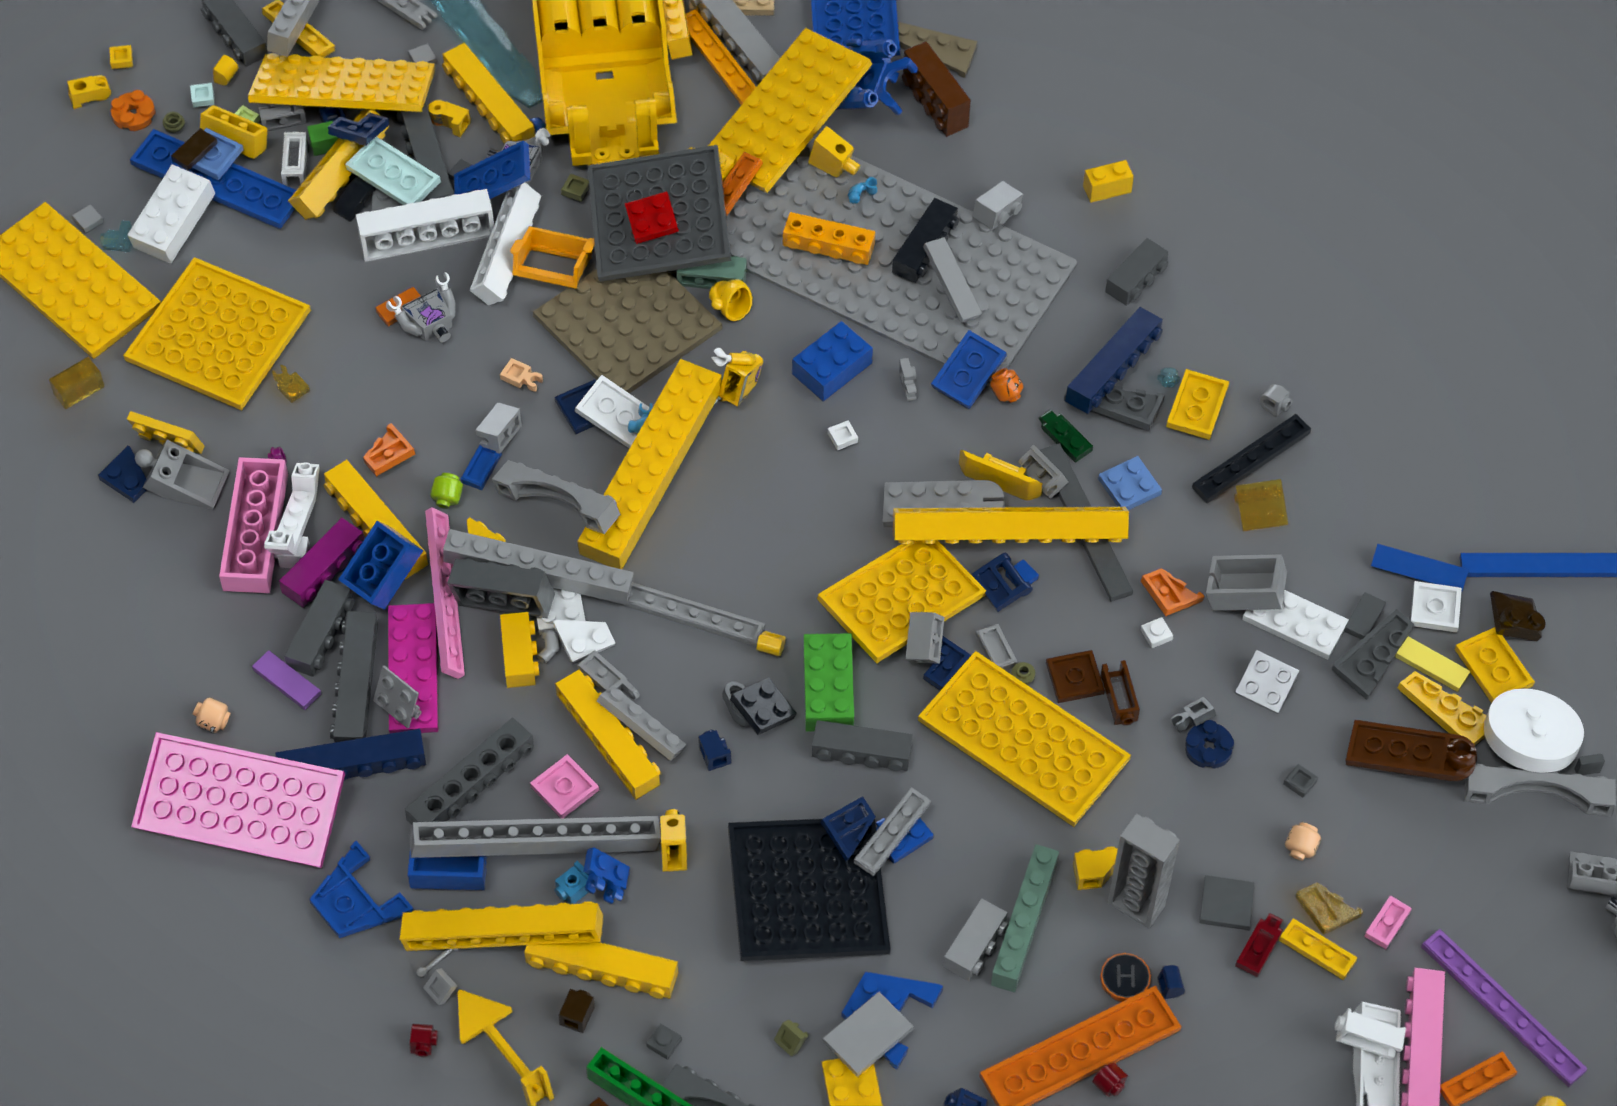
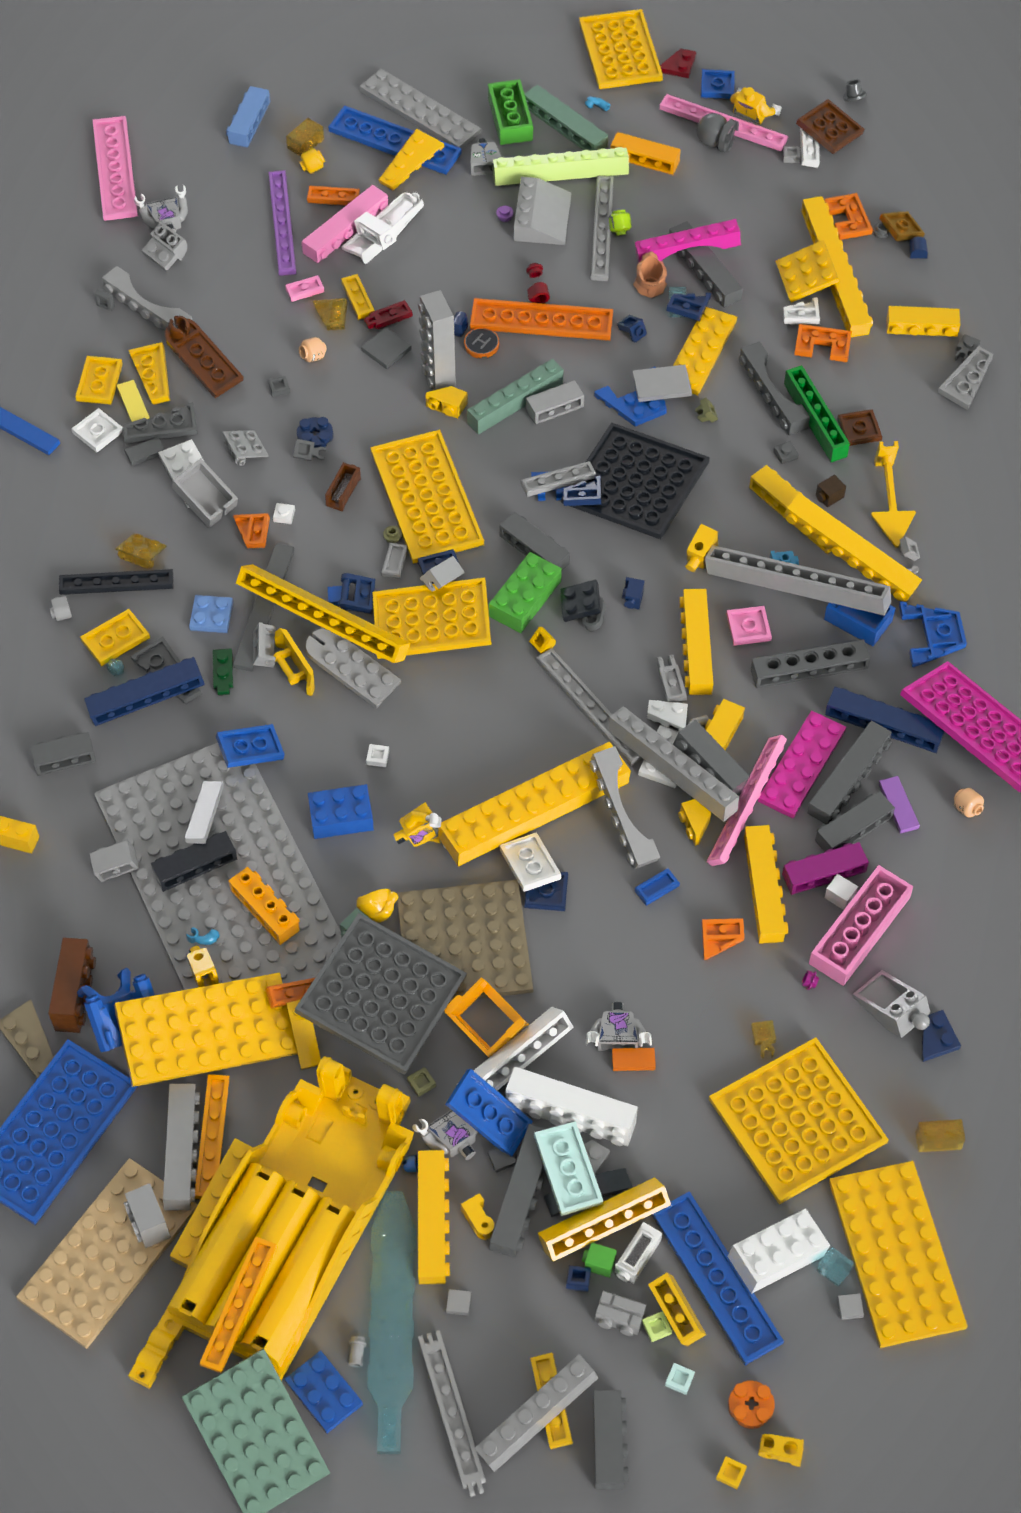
camera: 145 degrees left, 0 degrees up
(162, 431) = (891, 1038): yellow plate -> none
(173, 122) = (721, 1359): olive plate -> none
(194, 149) = (726, 1295): dark brown tile -> none
(220, 157) = (710, 1291): medium blue plate -> none
(224, 70) = (645, 1393): yellow brick -> none
(297, 511) = (832, 904): white slope -> none
(342, 82) = (552, 1297): yellow plate -> none
(359, 132) = (576, 1211): dark blue plate -> none
(380, 565) = (787, 826): blue brick -> none
(396, 697) = (831, 729): light grey hinge -> none
(422, 1039) = (939, 525): dark red plate -> none
(446, 490) = (697, 875): lime head -> none
(499, 427) = (625, 899): light grey hinge -> none
(518, 373) = (579, 941): light nougat plate -> none
(605, 870) = (764, 549): blue plate -> none
(635, 426) = (521, 836): dark azure arm -> none
(641, 722) = (671, 631): light grey plate -> none
(651, 217) = (392, 984): red plate -> none
(907, 375) = (296, 770): light grey plate -> none
(1006, 385) = (234, 718): orange head -> none
(1075, 676) = (360, 516): reddish brown tile -> none
(1419, 567) = (82, 456): blue tile -> none
(1516, 616) = (56, 394): dark brown slope -> none
(1533, 730) = (119, 326): white brick -> none

